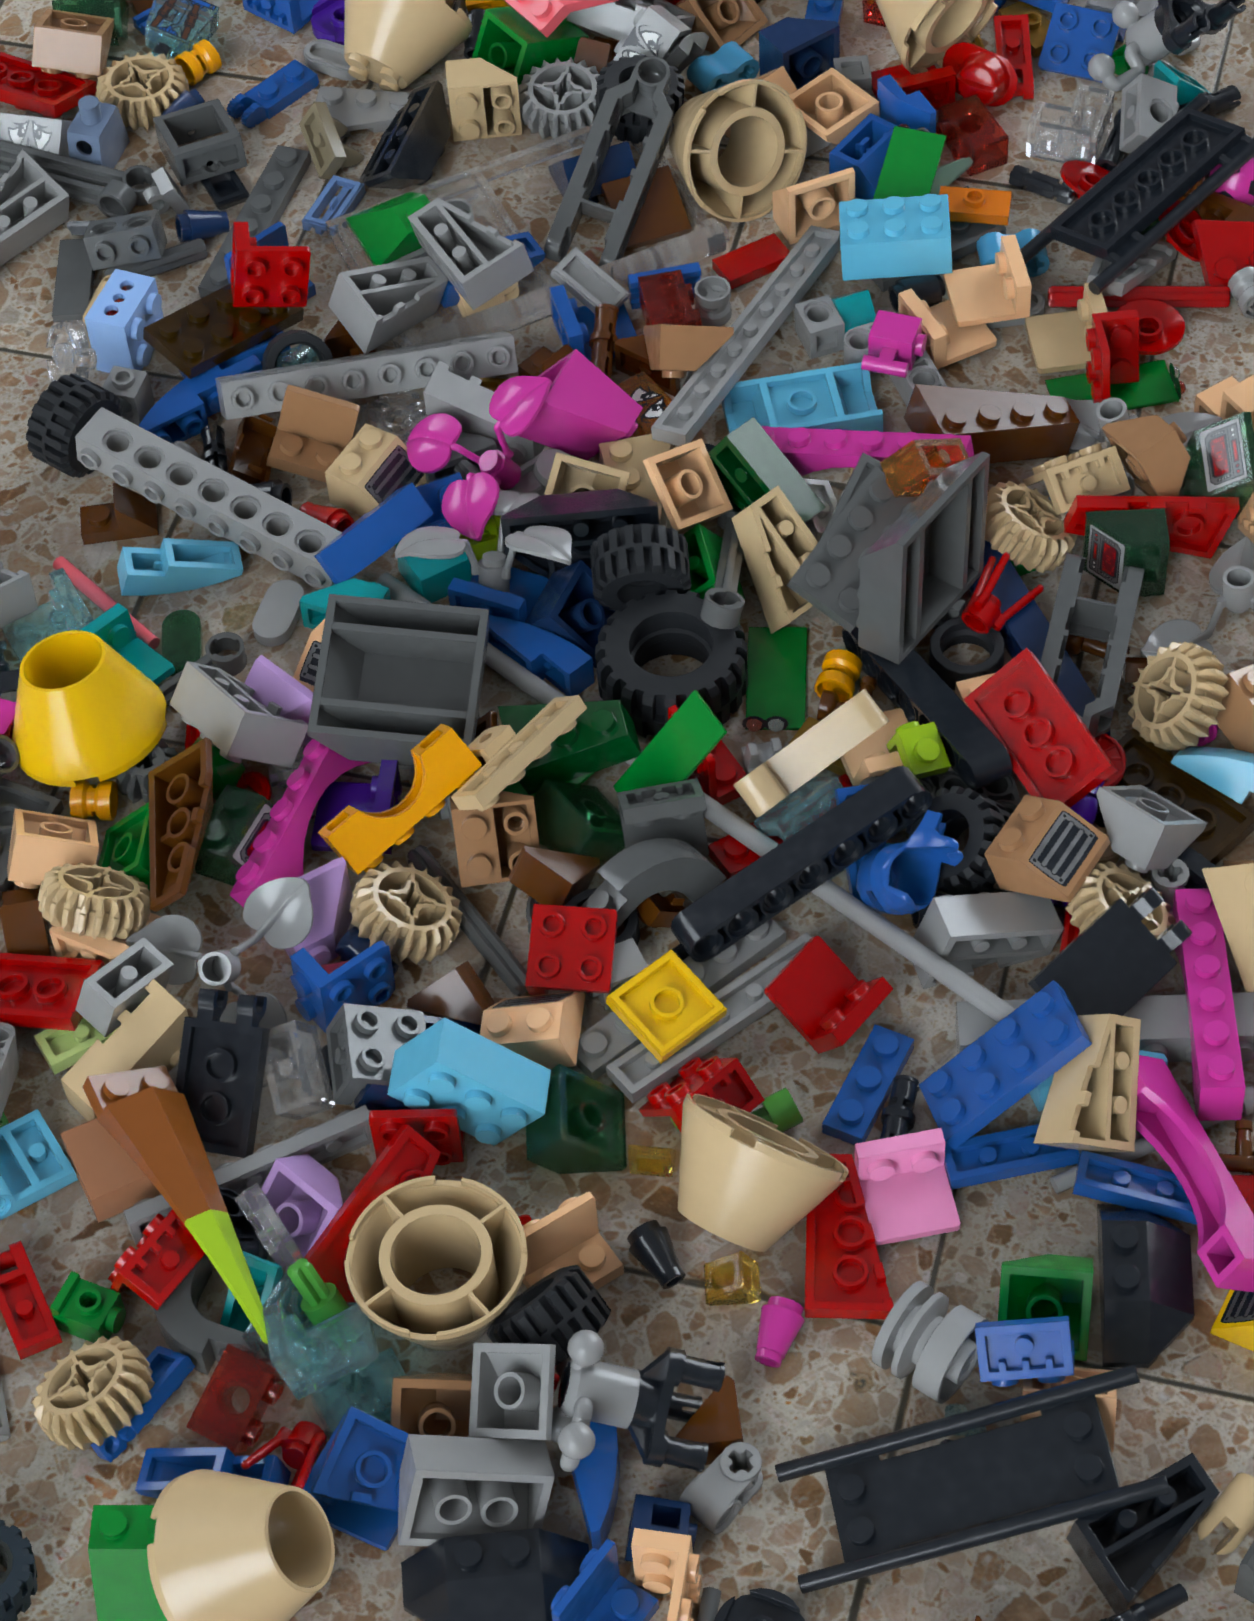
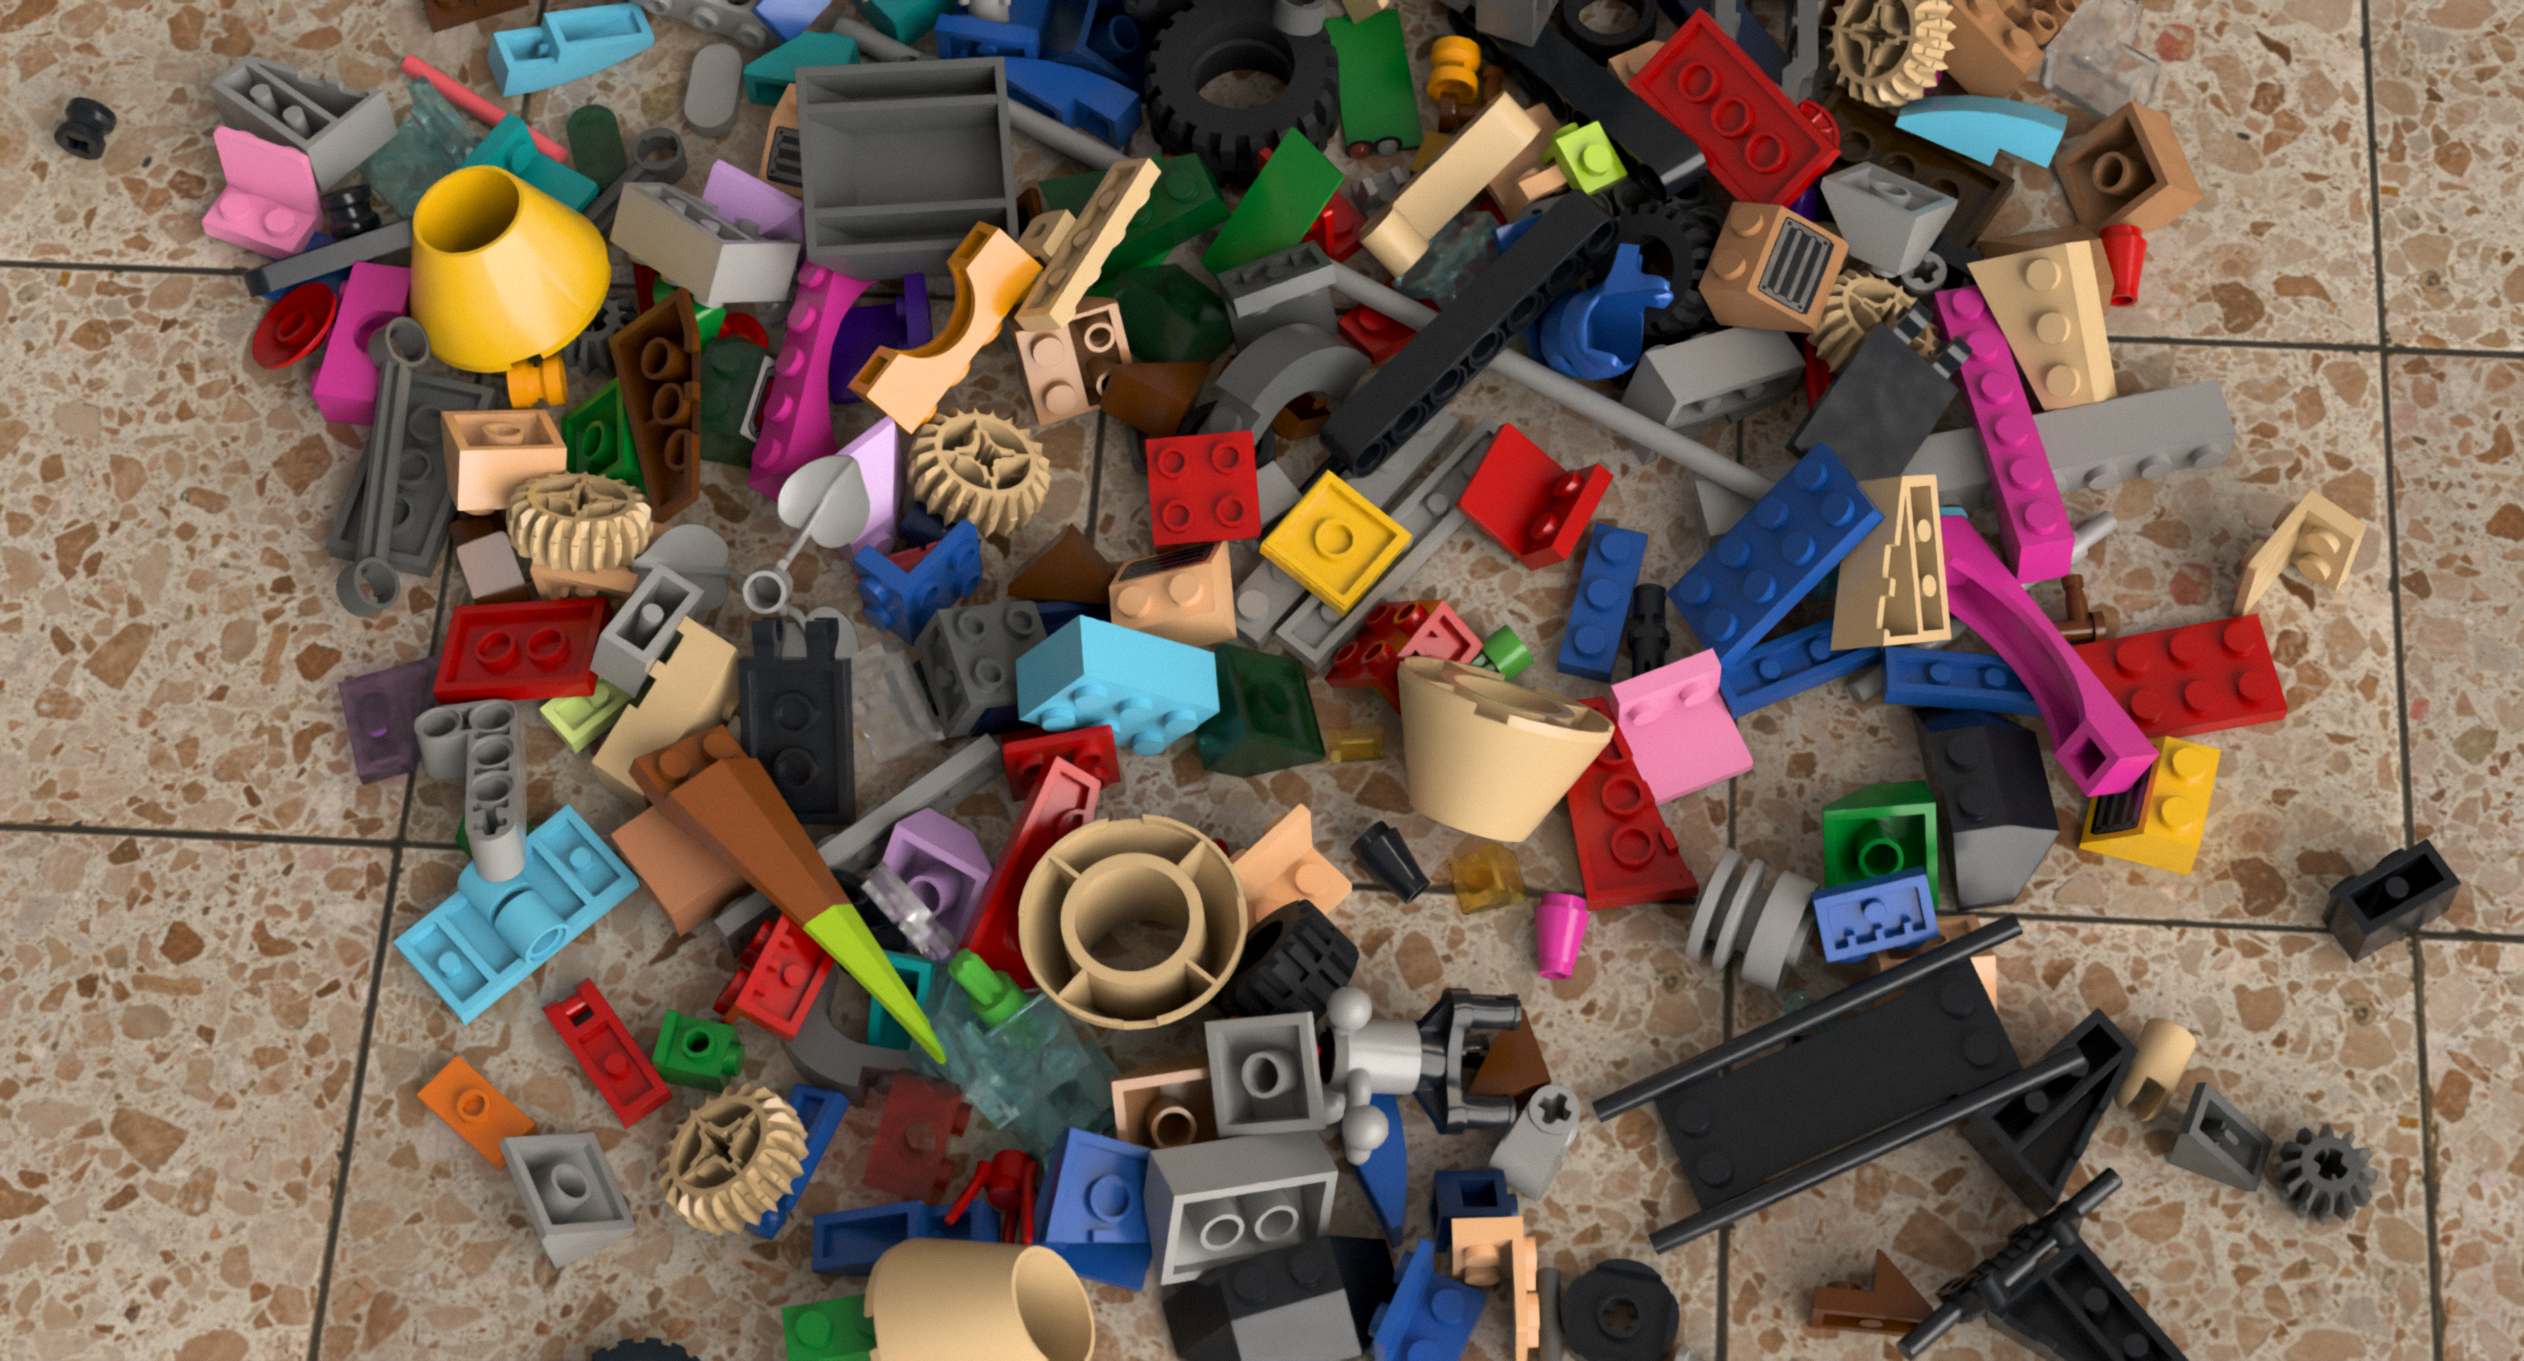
camera: 10 degrees left, 10 degrees up
(475, 926) = (1067, 473): dark grey axle -> none

